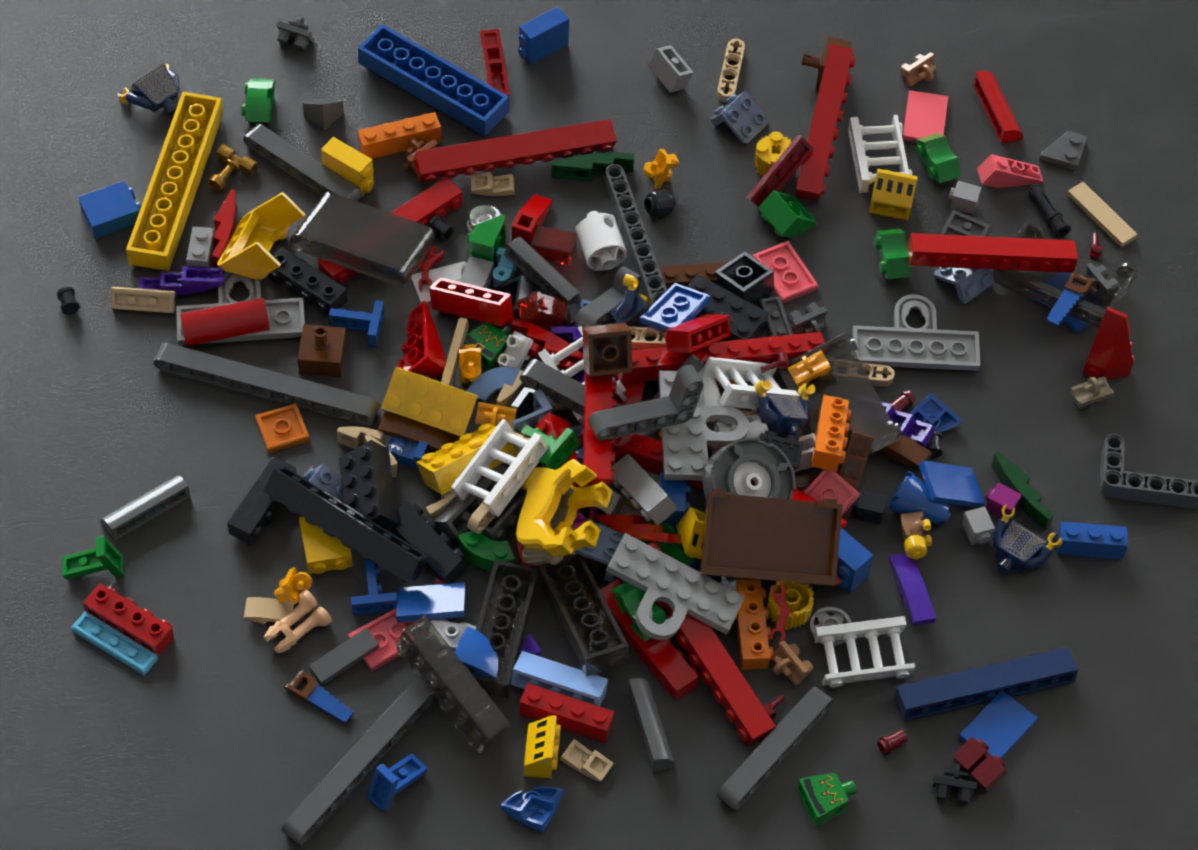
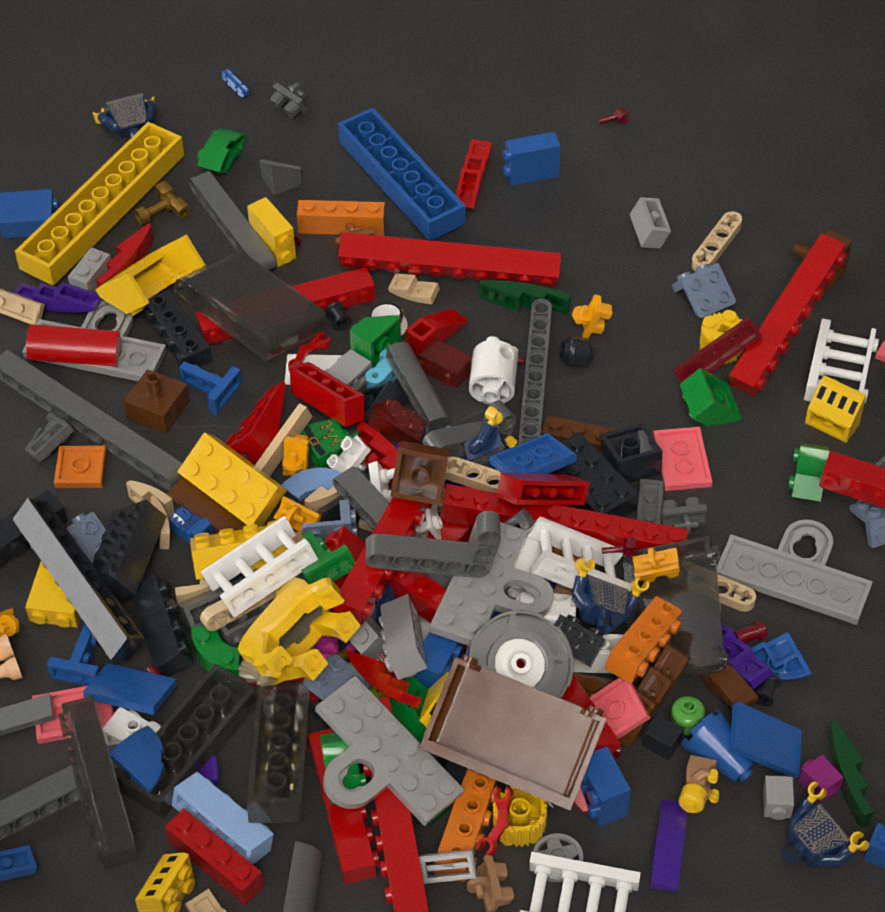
camera: 25 degrees right, 5 degrees down
(235, 30) = (235, 83): none -> blue axle
(243, 410) = (47, 440): none -> dark grey wing
(769, 644) = (471, 863): none -> light grey tile
(883, 482) = (687, 713): none -> bright green head

